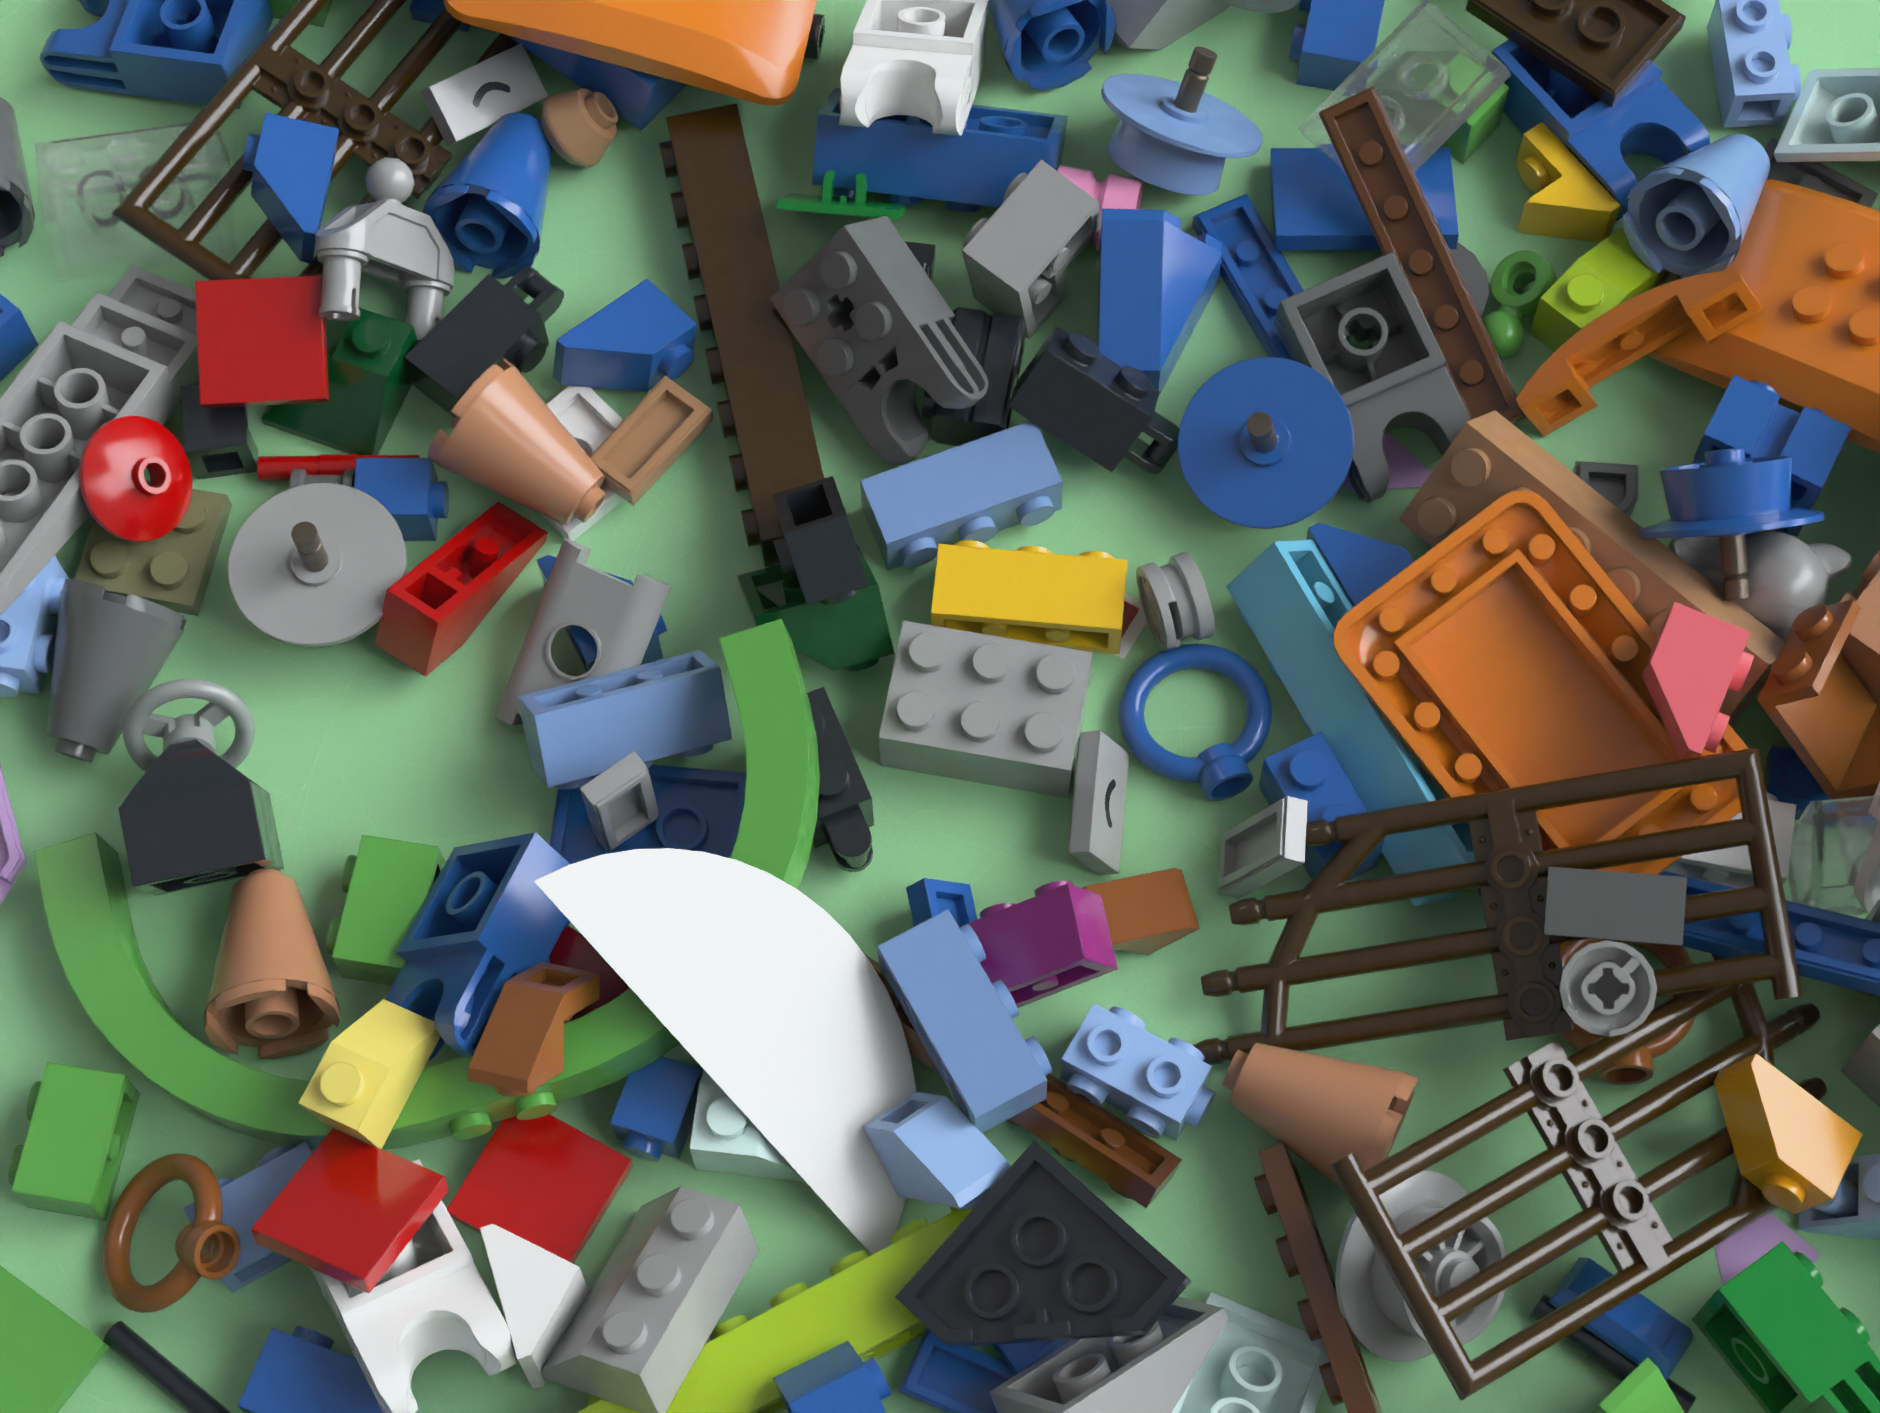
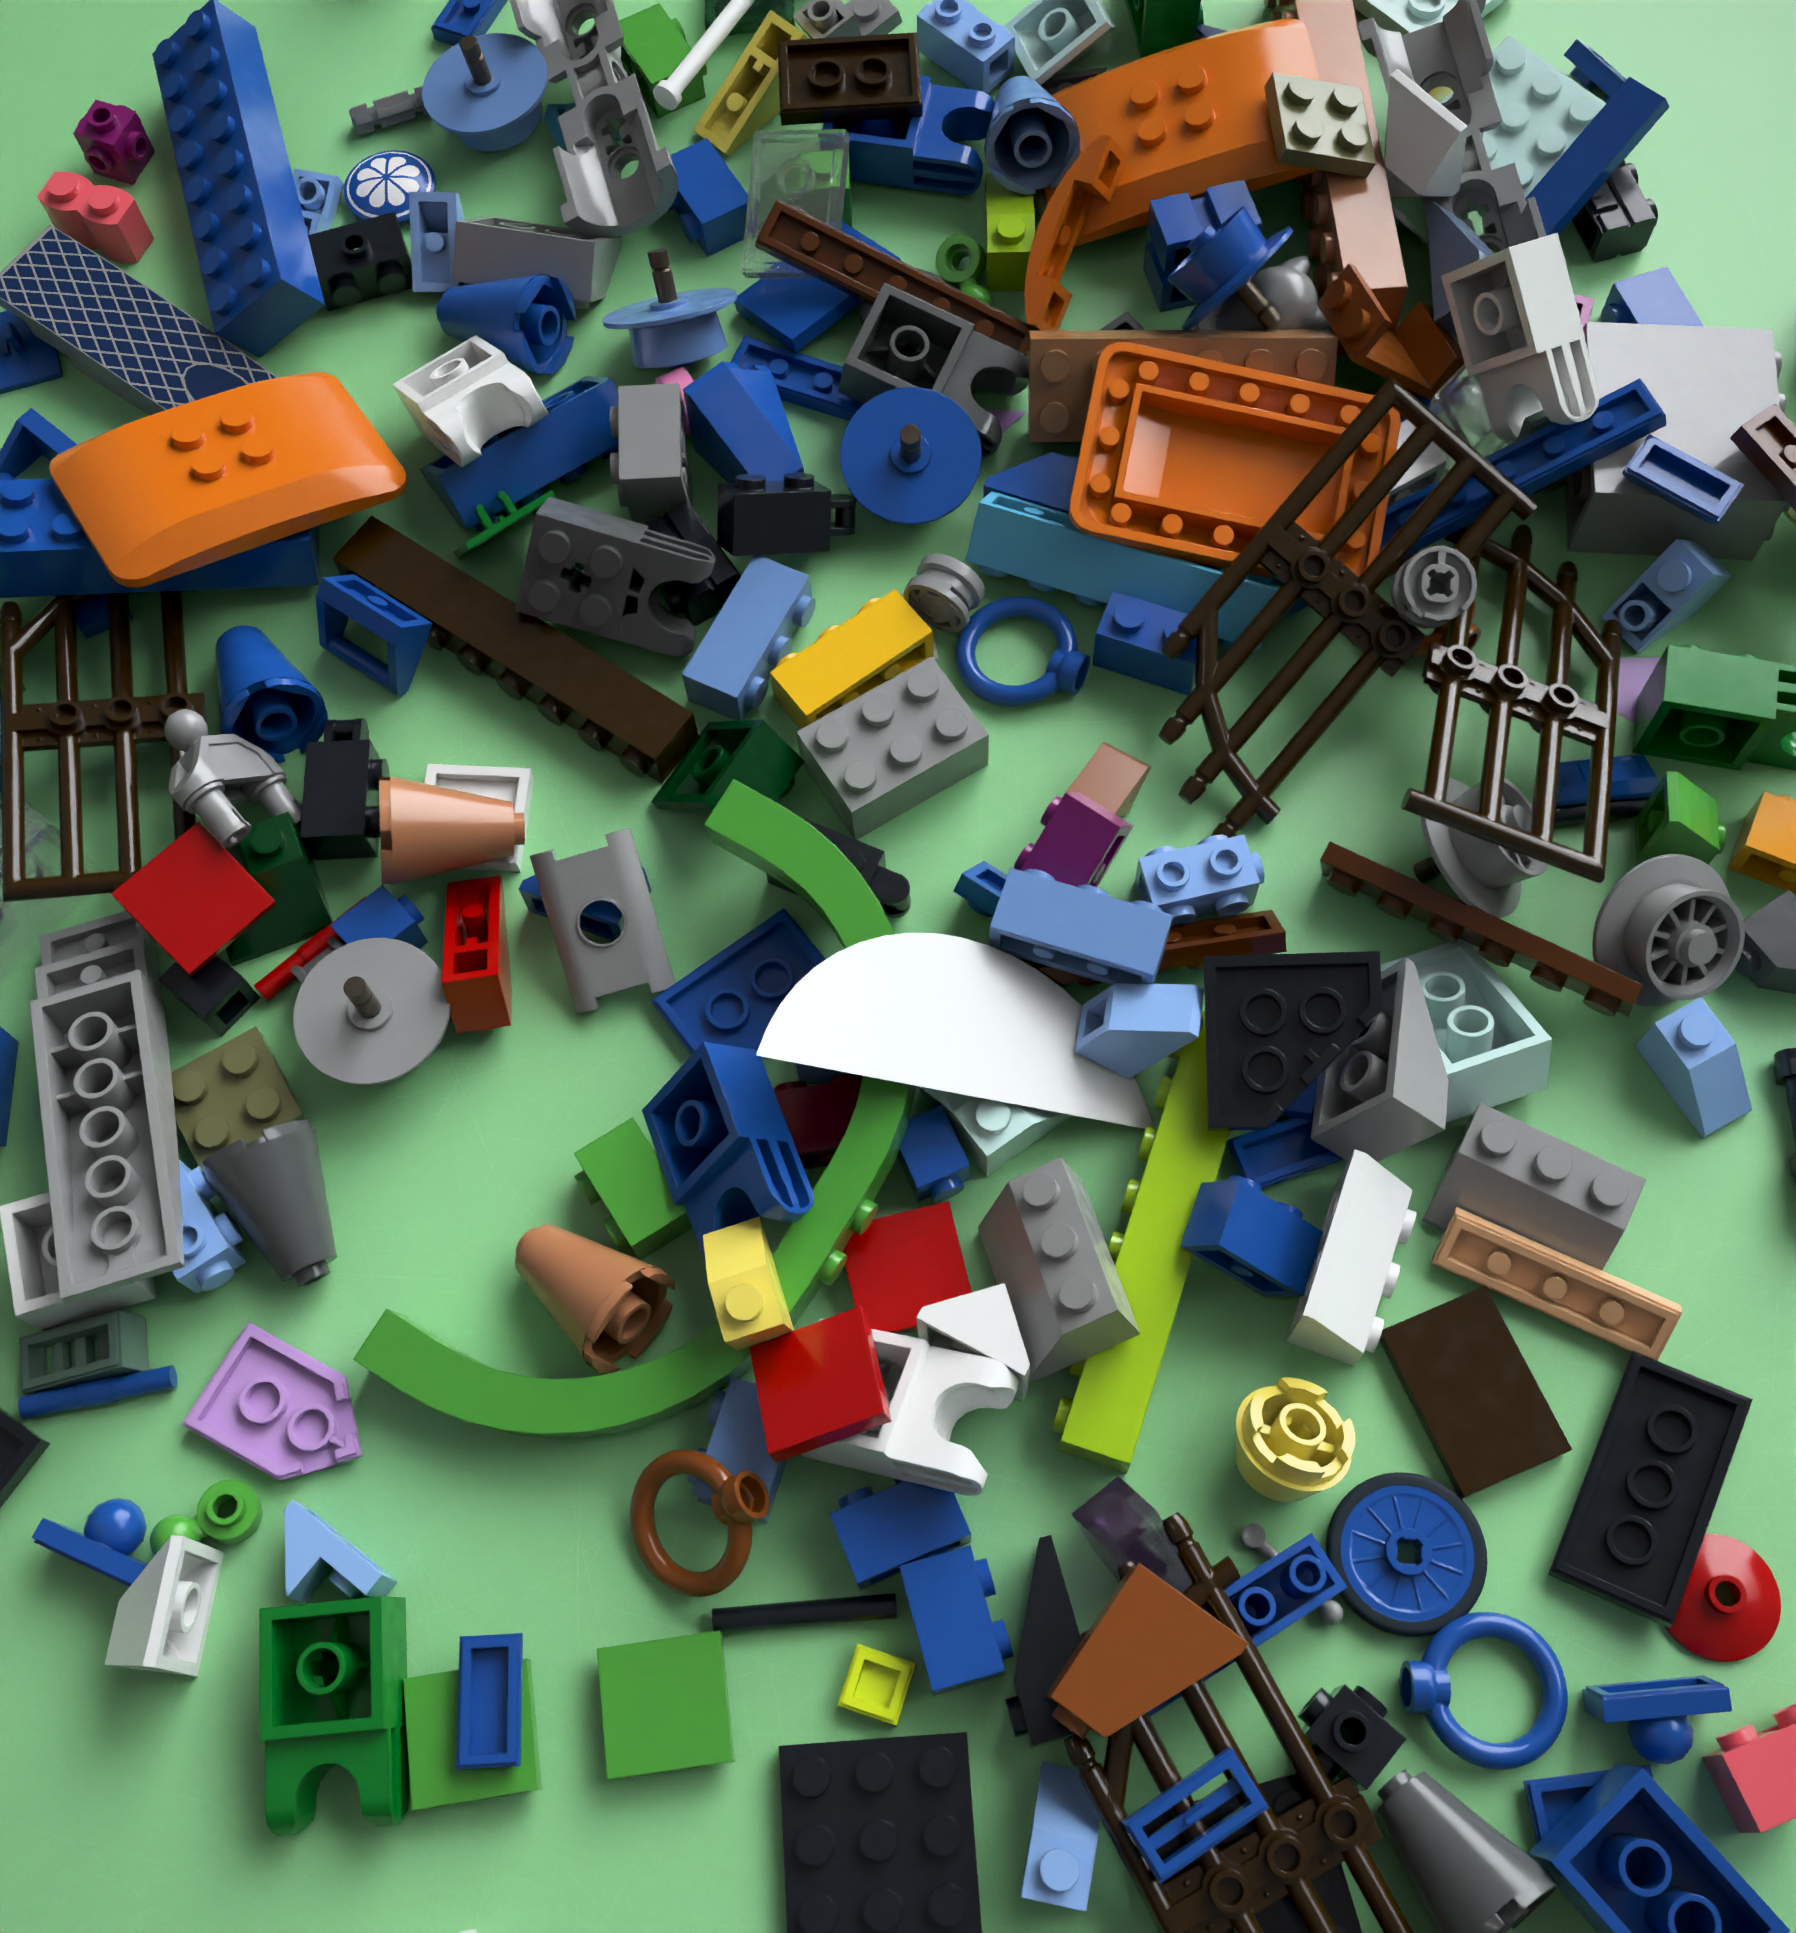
camera: 40 degrees left, 0 degrees up
(74, 1141) = (565, 1523): bright green brick -> none
(115, 482) = (188, 1059): red dish -> none
(192, 811) = (445, 1229): black piece -> none
(292, 177) = (115, 779): blue slope -> none
(484, 94) = (190, 639): light grey tile -> none
(526, 1028) = (826, 1162): dark orange slope -> none
(579, 125) = (275, 609): medium nougat cone -> none
(620, 801) = (730, 984): light grey tile -> none
(627, 343) = (444, 714): blue slope -> none
(645, 709) = (676, 937): medium blue brick -> none
(650, 439) = (516, 759): medium nougat tile -> none
(654, 209) = (402, 628): none -> blue tile
(818, 543) = (704, 719): black brick -> none
(1098, 802) = (1017, 747): light grey tile -> none
(1263, 847) = (1144, 685): light grey tile -> none
(1321, 1103) = (1338, 800): nougat cone -> none
(1568, 196) = (937, 192): yellow slope -> none
(1615, 905) = (1394, 536): dark grey tile -> none
(1690, 675) = (1309, 372): coral slope -> none
(1783, 1135) = (1594, 596): light orange slope -> none

